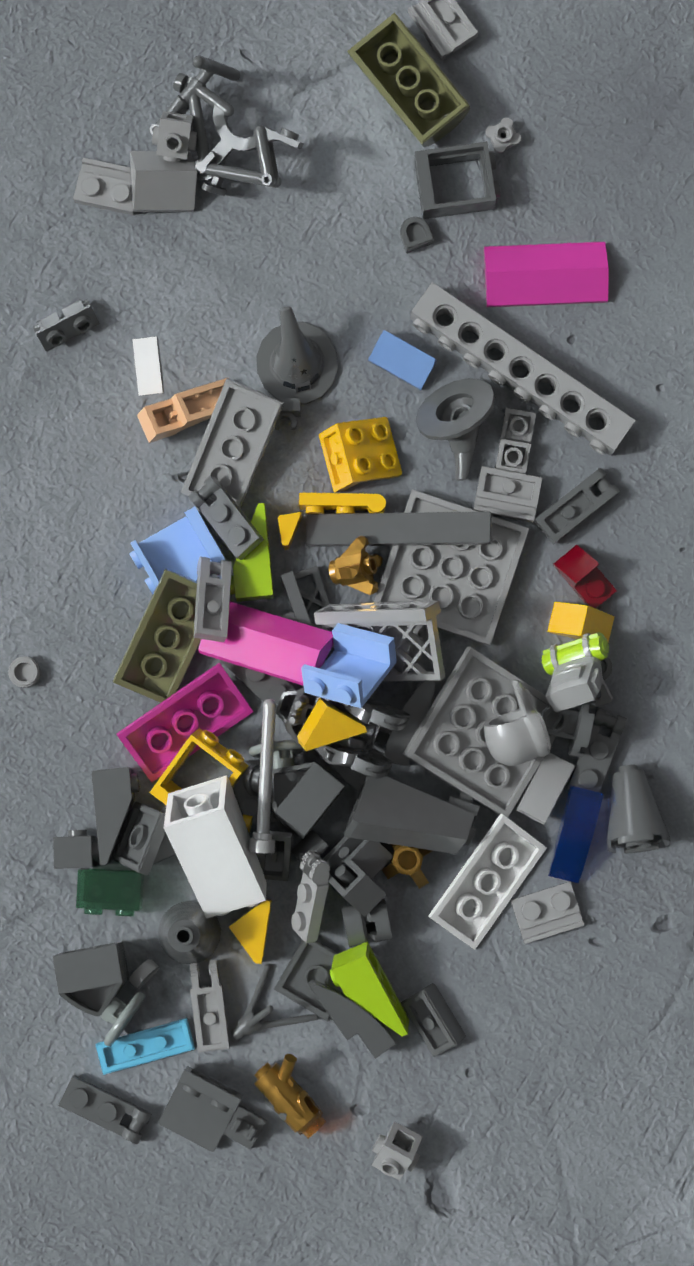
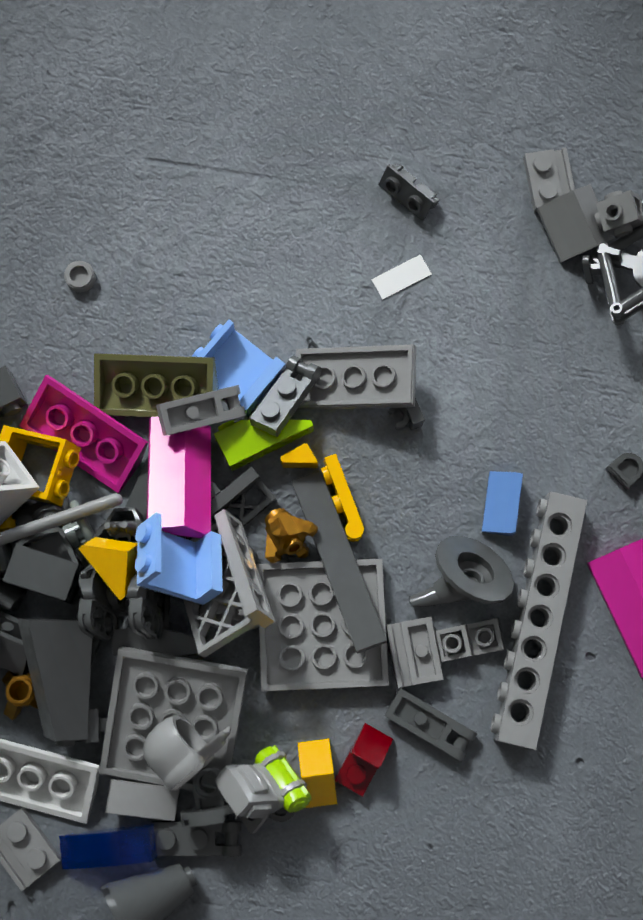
camera: 65 degrees right, 5 degrees down
(180, 411) = (369, 318): light nougat slope -> none
(296, 360) = (461, 406): dark grey piece -> none
(359, 452) = (398, 497): yellow bracket -> none

